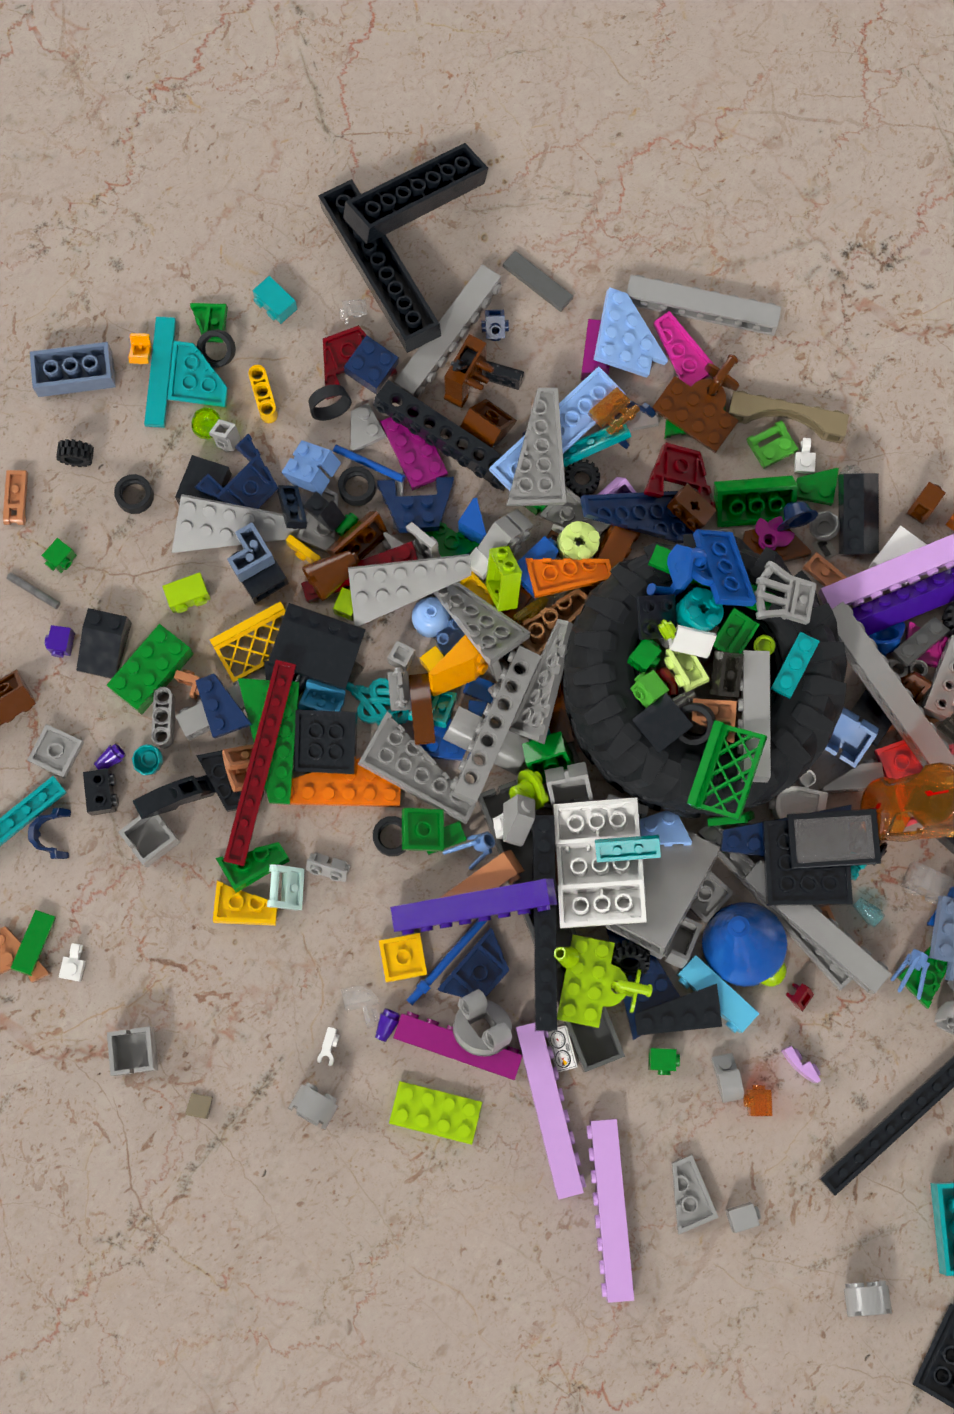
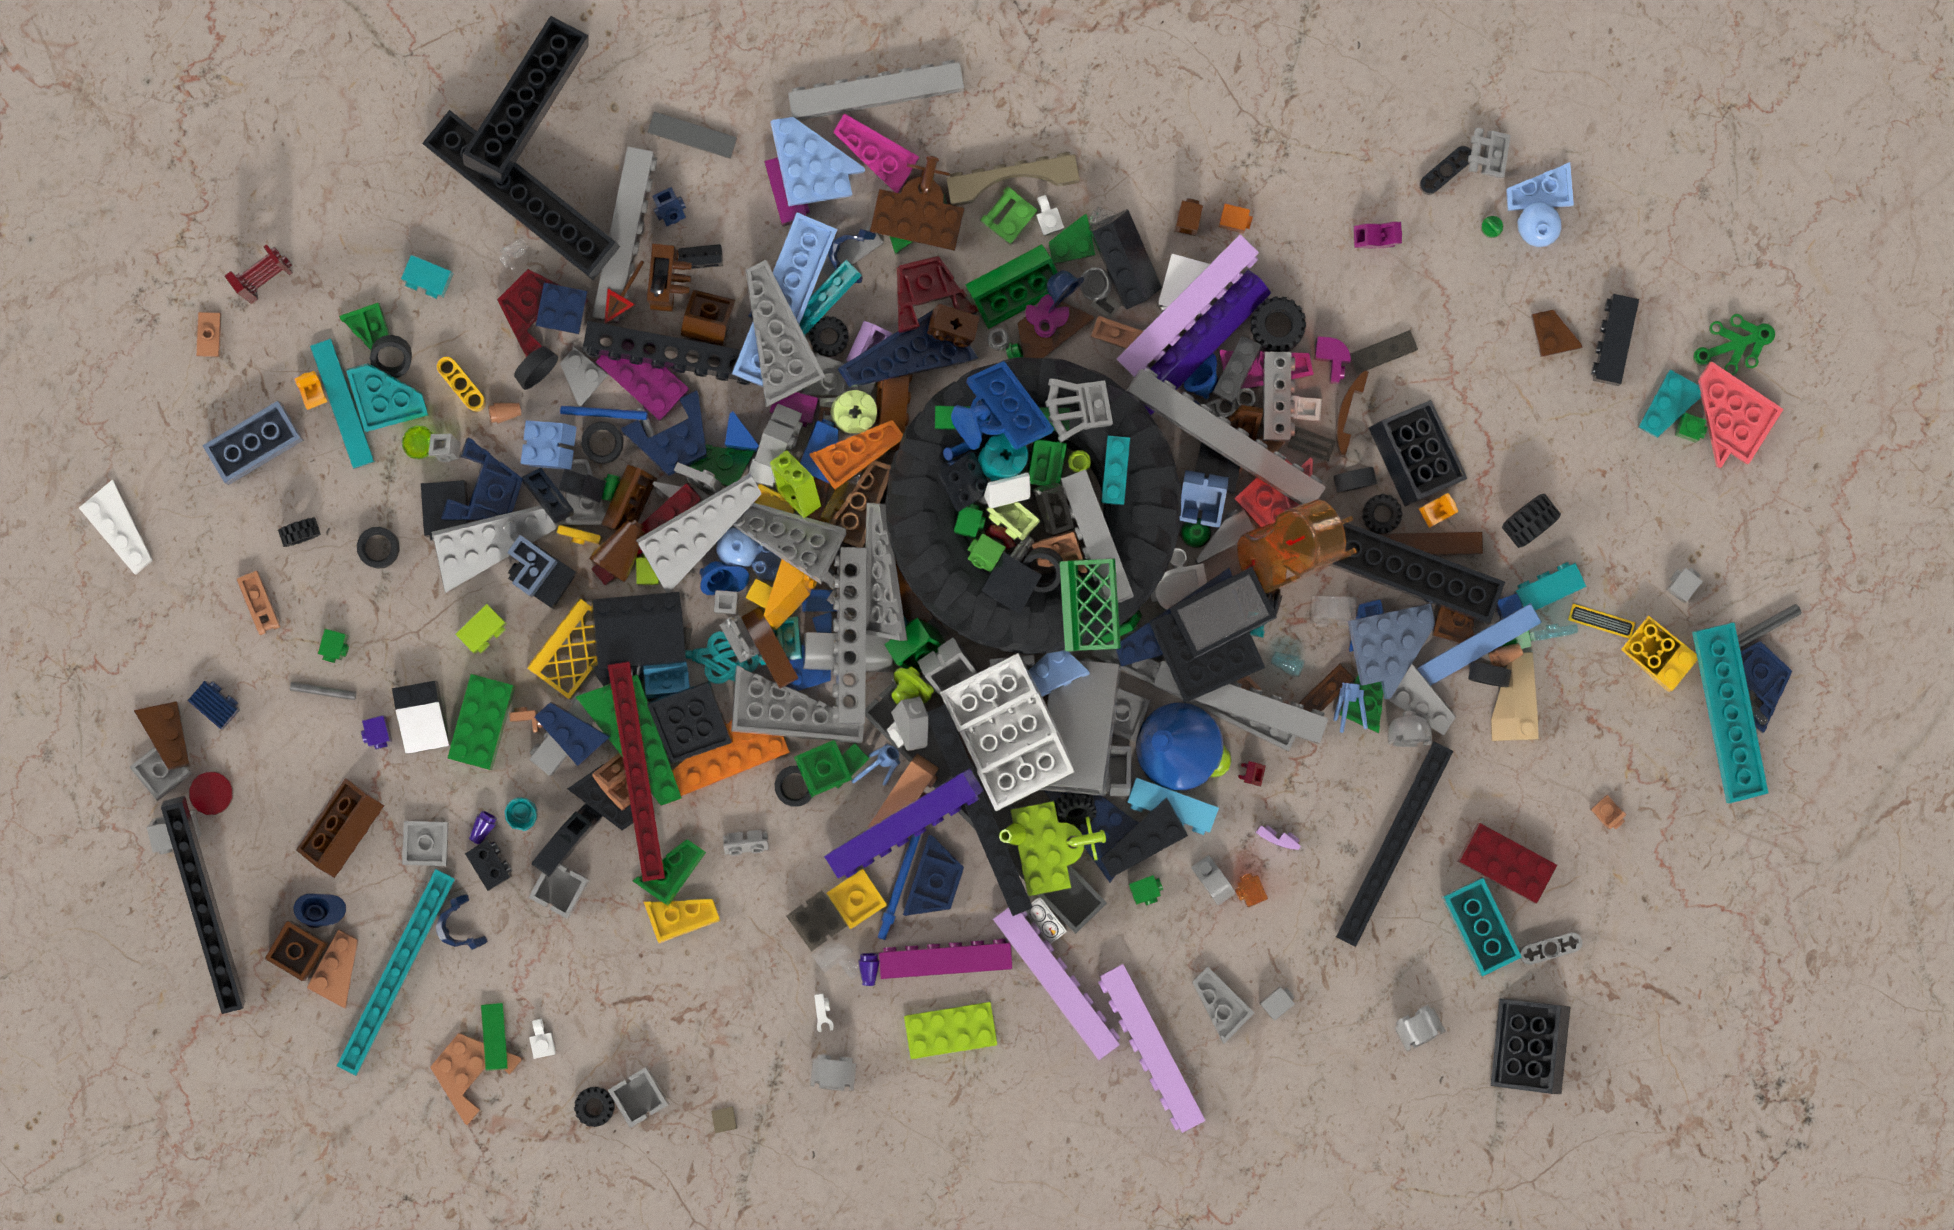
camera: 20 degrees left, 10 degrees up
(78, 1039) = (594, 1120): none -> black tyre
(80, 277) = (208, 334): none -> nougat plate
(125, 245) = (258, 274): none -> dark red fence
(167, 726) = (508, 757): light grey beam -> none
(287, 429) = (503, 411): none -> nougat cone
(291, 887) = (719, 877): light aqua plate -> none
(359, 961) = (816, 920): none -> clear smoke piece
(409, 634) = (722, 578): none -> blue piece
(419, 379) = (616, 303): none -> piece
(473, 1008) = (944, 920): light grey piece -> none
(541, 523) = (801, 403): none -> magenta brick
(609, 407) = (826, 254): clear orange plate -> none
(627, 848) = (1029, 708): plate -> none
(667, 629) = (979, 492): lime plate -> none
(829, 766) = (1195, 534): none -> green brick
(896, 949) = (1327, 689): none -> reddish brown tile

